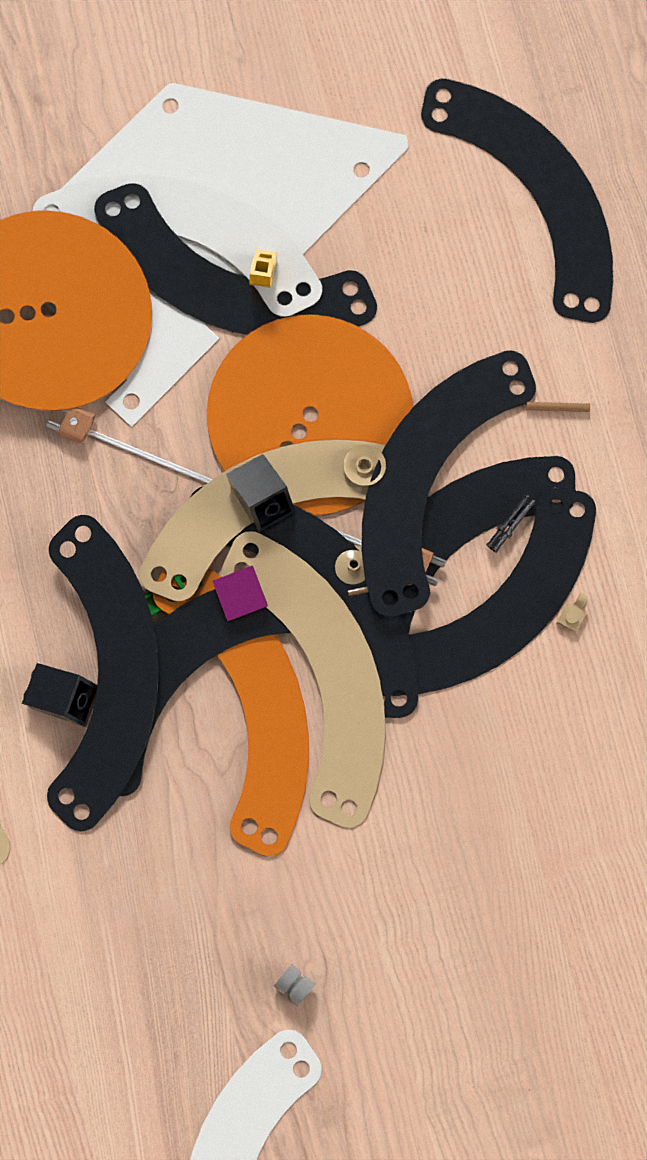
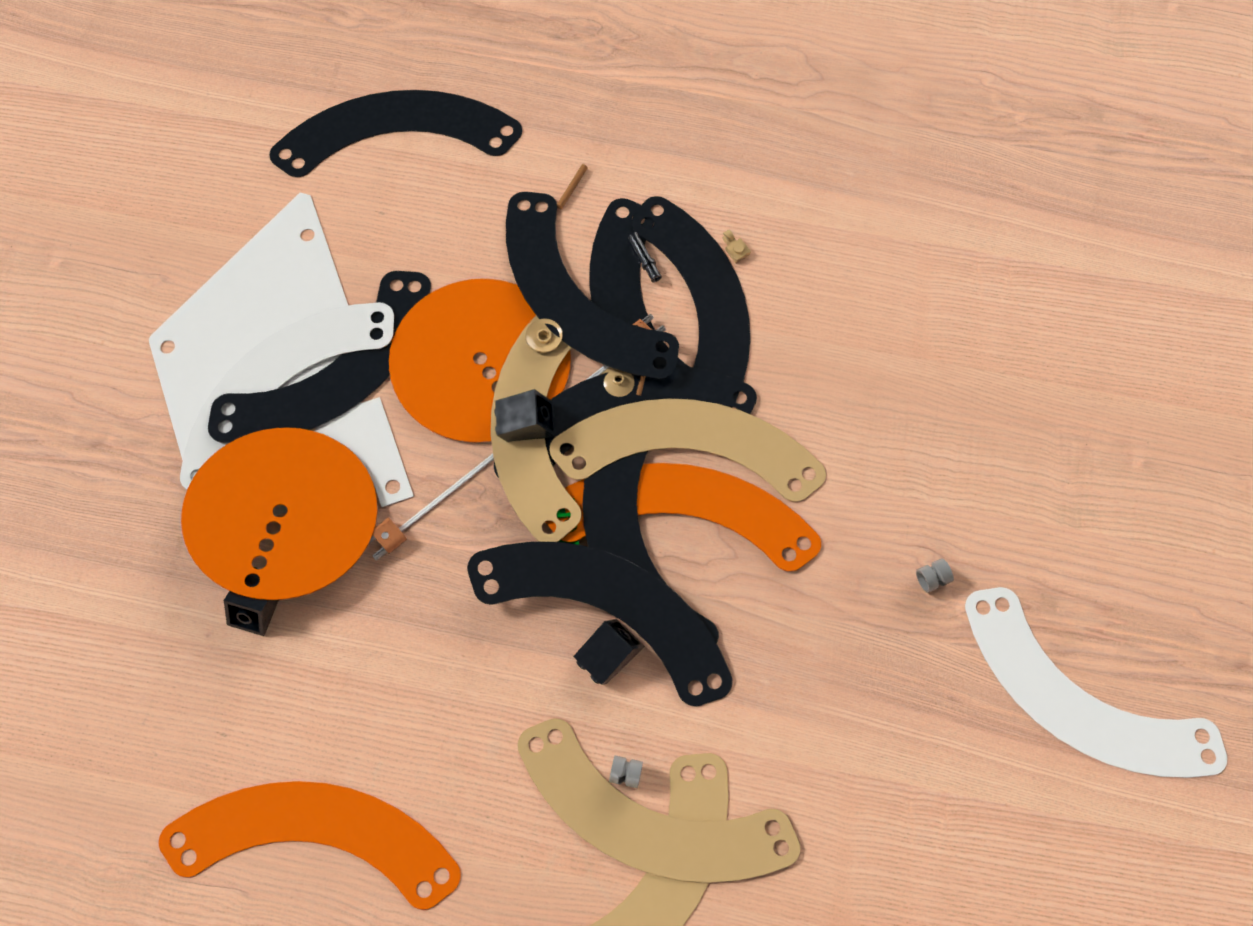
camera: 60 degrees left, 10 degrees down
(240, 593) = (598, 470): magenta tile -> none
(262, 268) = (345, 333): yellow brick -> none

